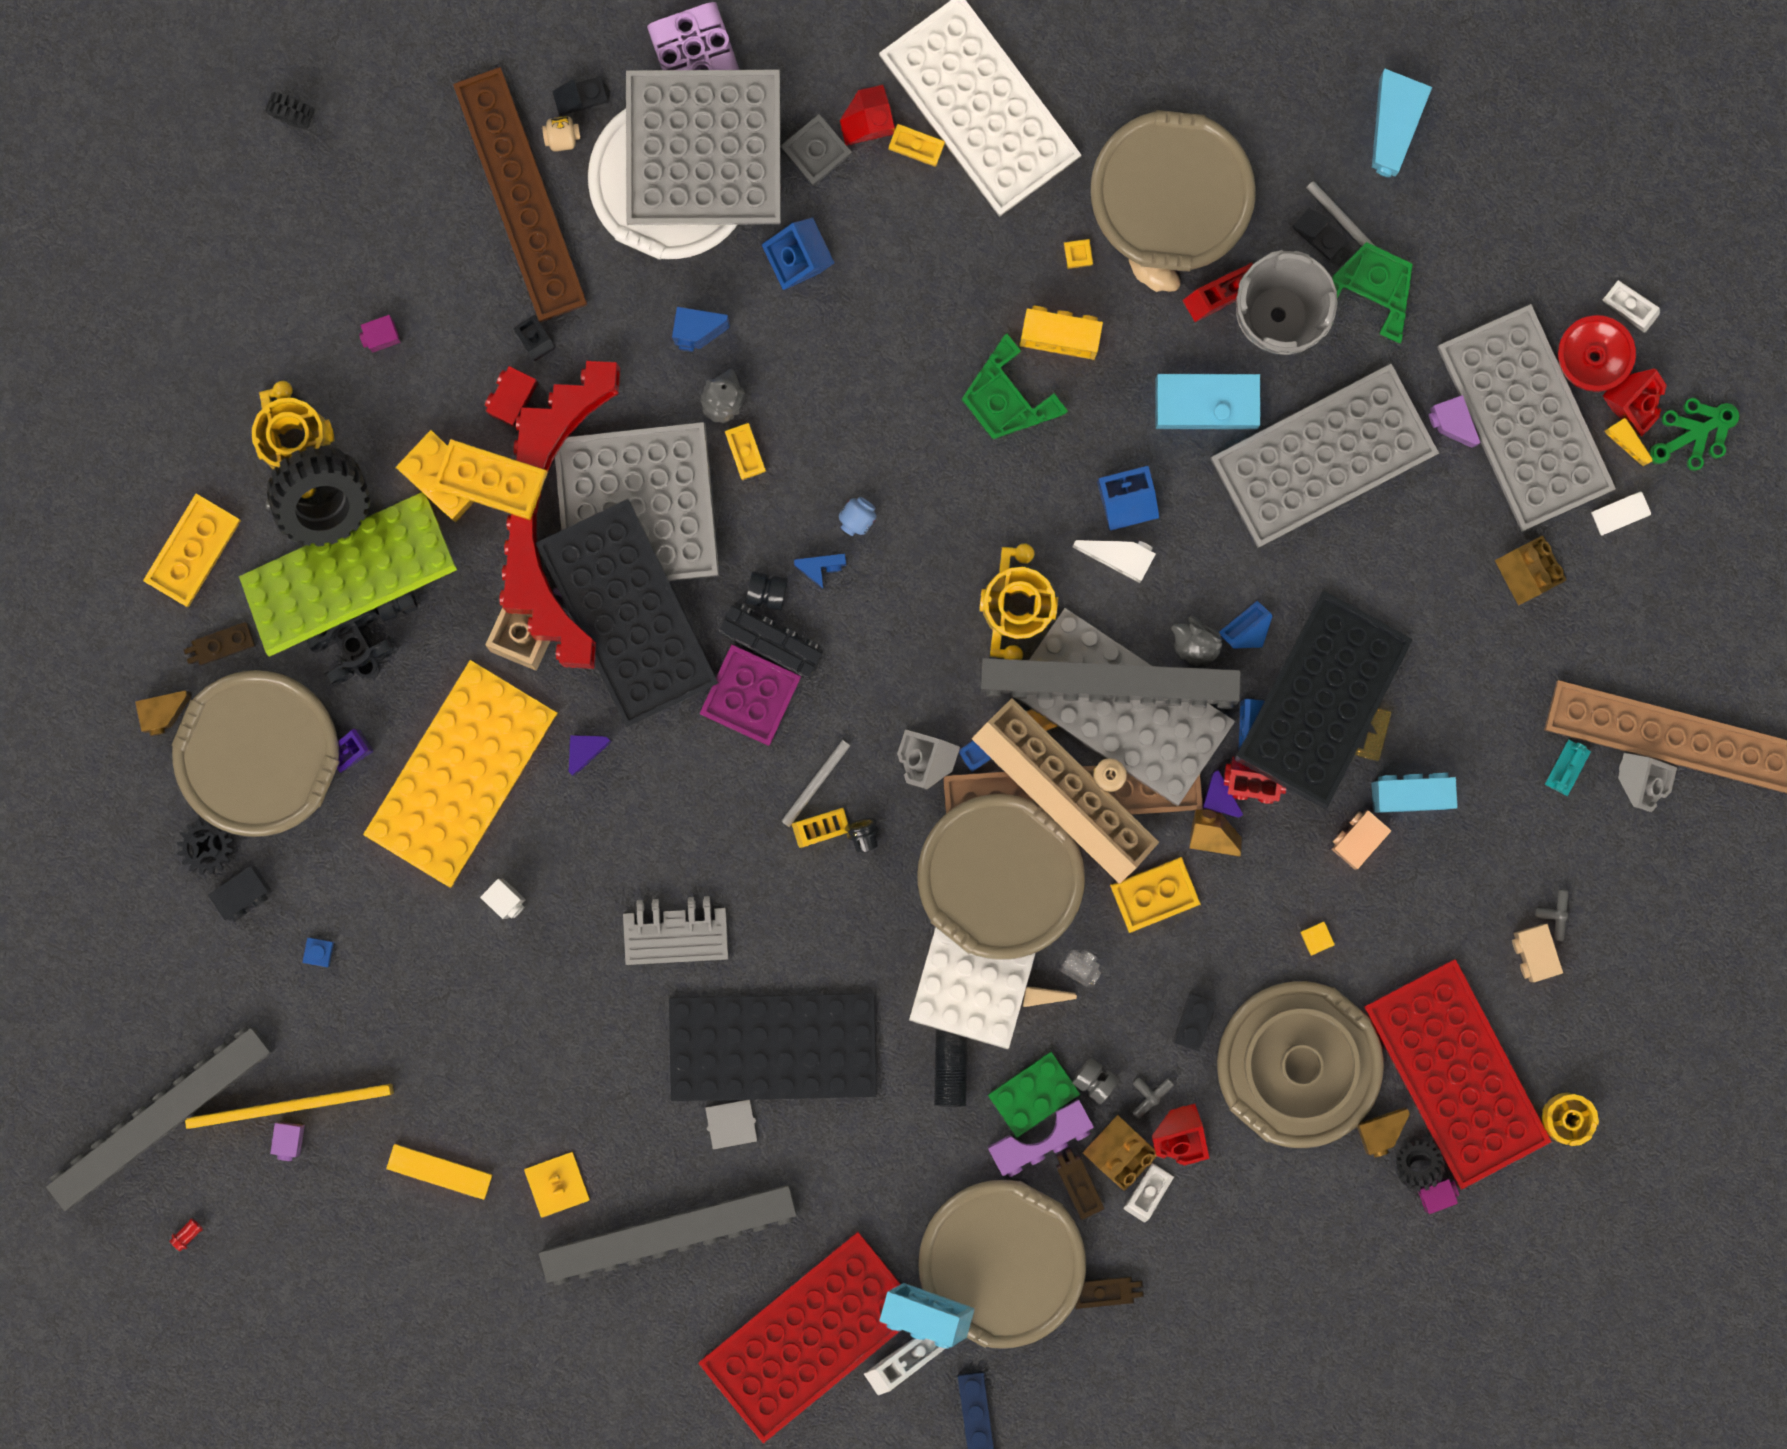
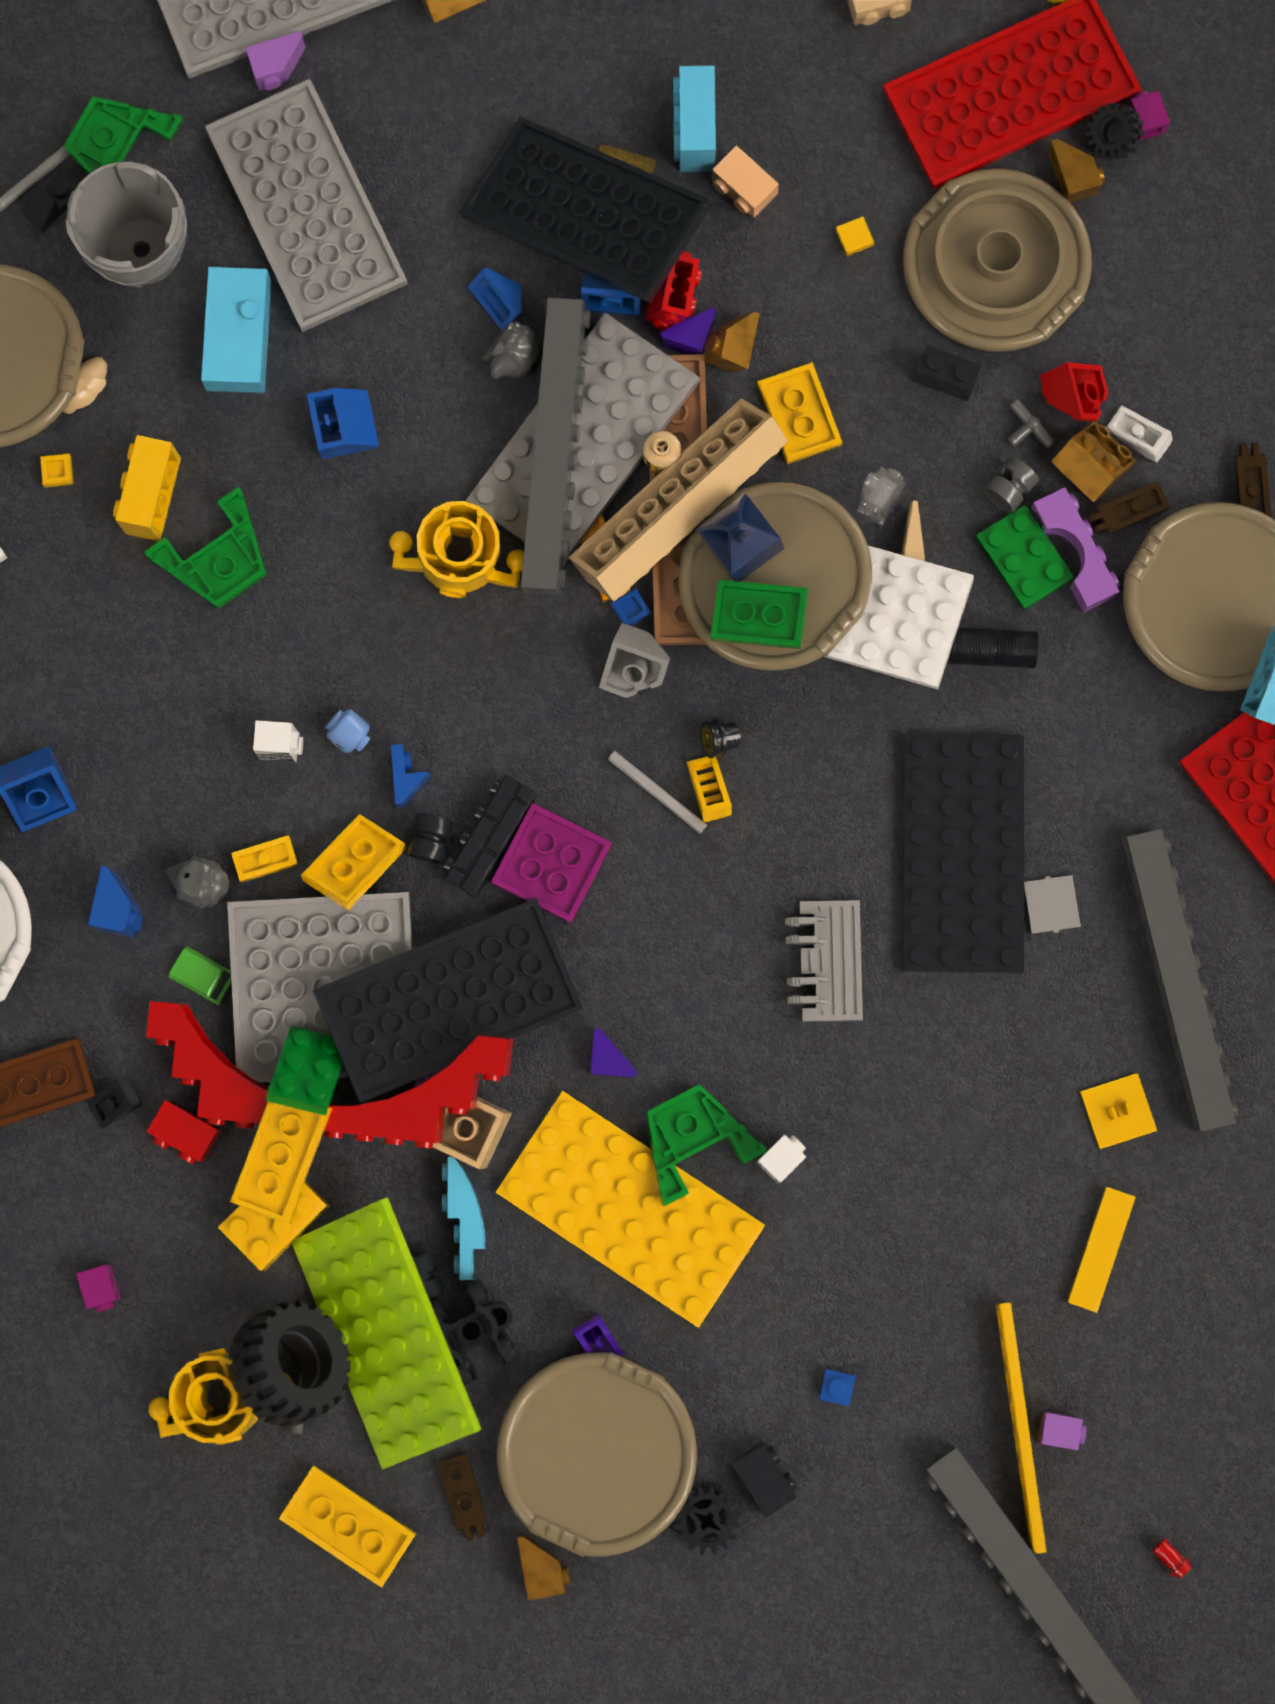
camera: 85 degrees left, 5 degrees down
(458, 634) = (464, 1205): none -> medium azure slope
(529, 819) = (687, 1127): none -> green wing
(560, 496) = (306, 1072): none -> green plate
(646, 402) = (199, 974): none -> bright green piece
(743, 527) = (353, 862): none -> yellow tile
(843, 457) = (277, 741): none -> white brick
(963, 863) = (759, 614): none -> green plate
(1029, 845) = (740, 538): none -> dark blue piece
(1123, 557) = (411, 429): white slope -> none
(1215, 295) = (112, 311): red slope -> none

